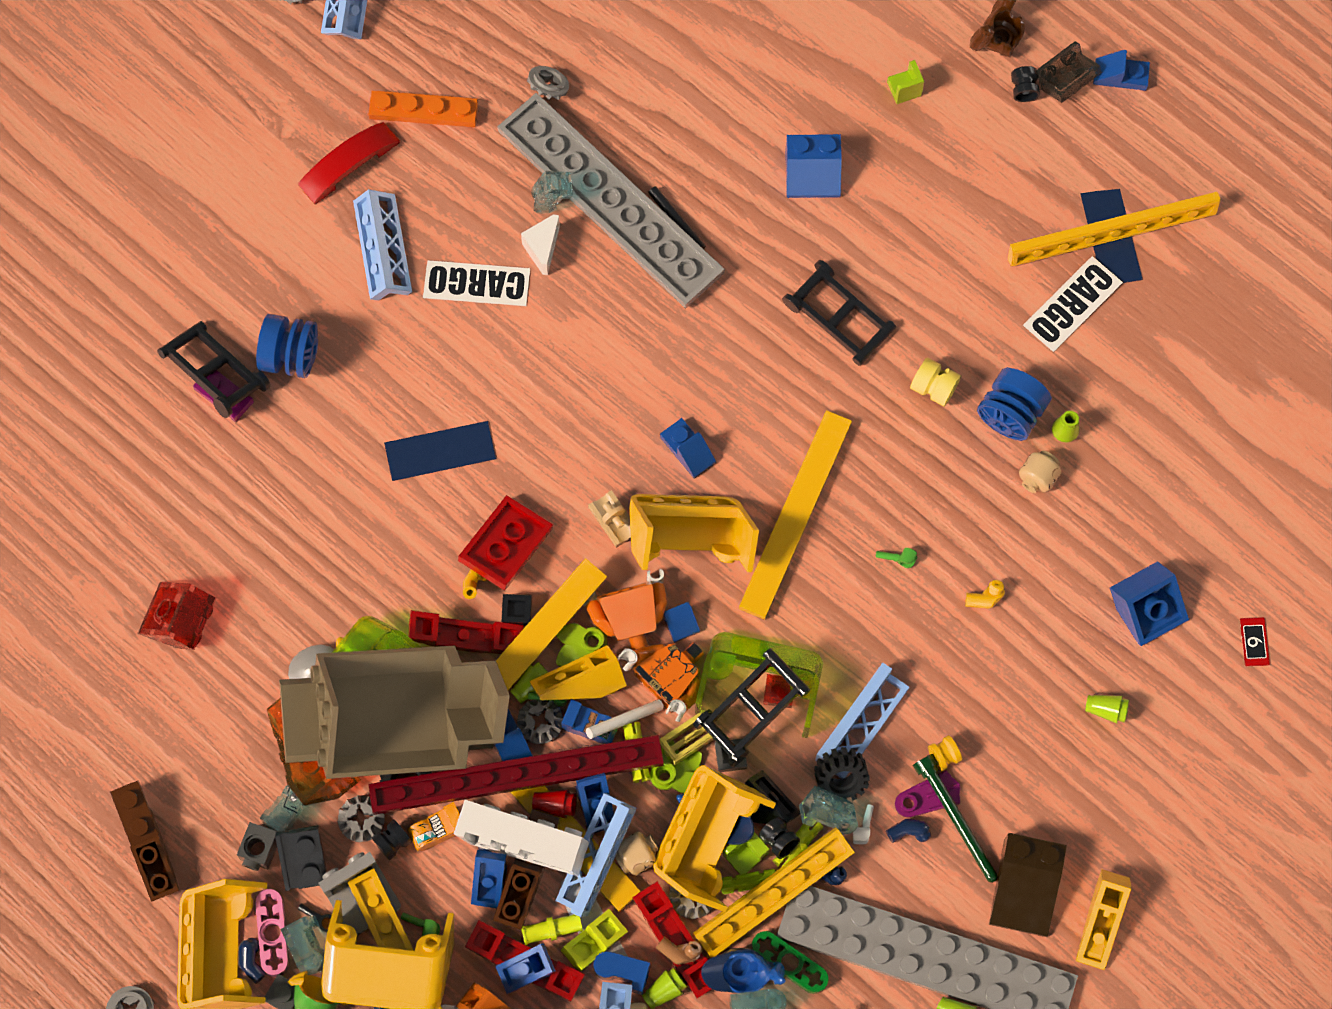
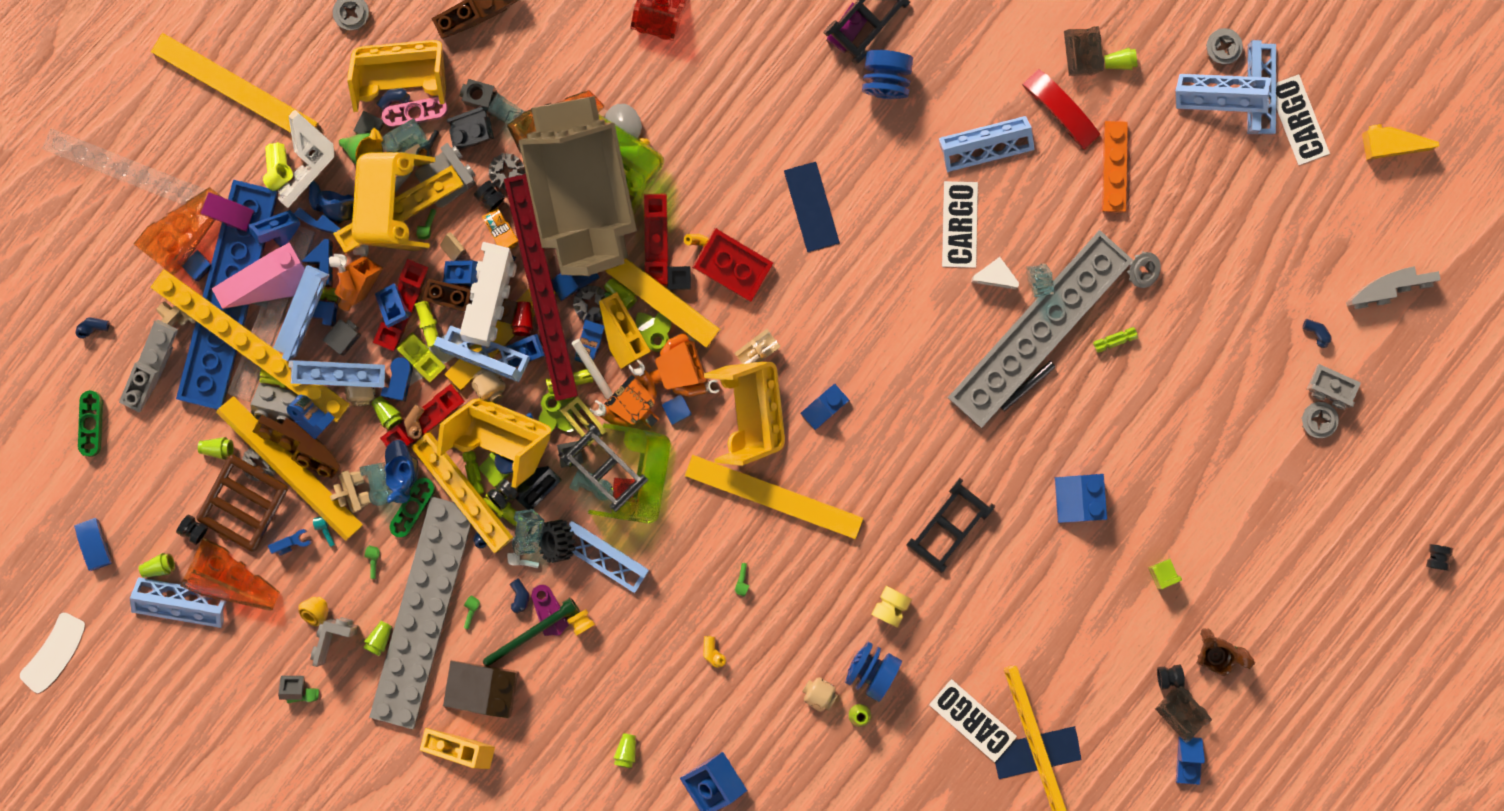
camera: 85 degrees right, 15 degrees up
(283, 129) = (1084, 51): none -> clear smoke bracket
(297, 91) = (1121, 59): none -> lime cone
(453, 891) = (452, 247): none -> tan slope
(628, 120) = (1115, 339): none -> lime axle
(764, 743) = (581, 480): none -> clear light blue leg
(918, 890) = (471, 603): none -> bright green hand

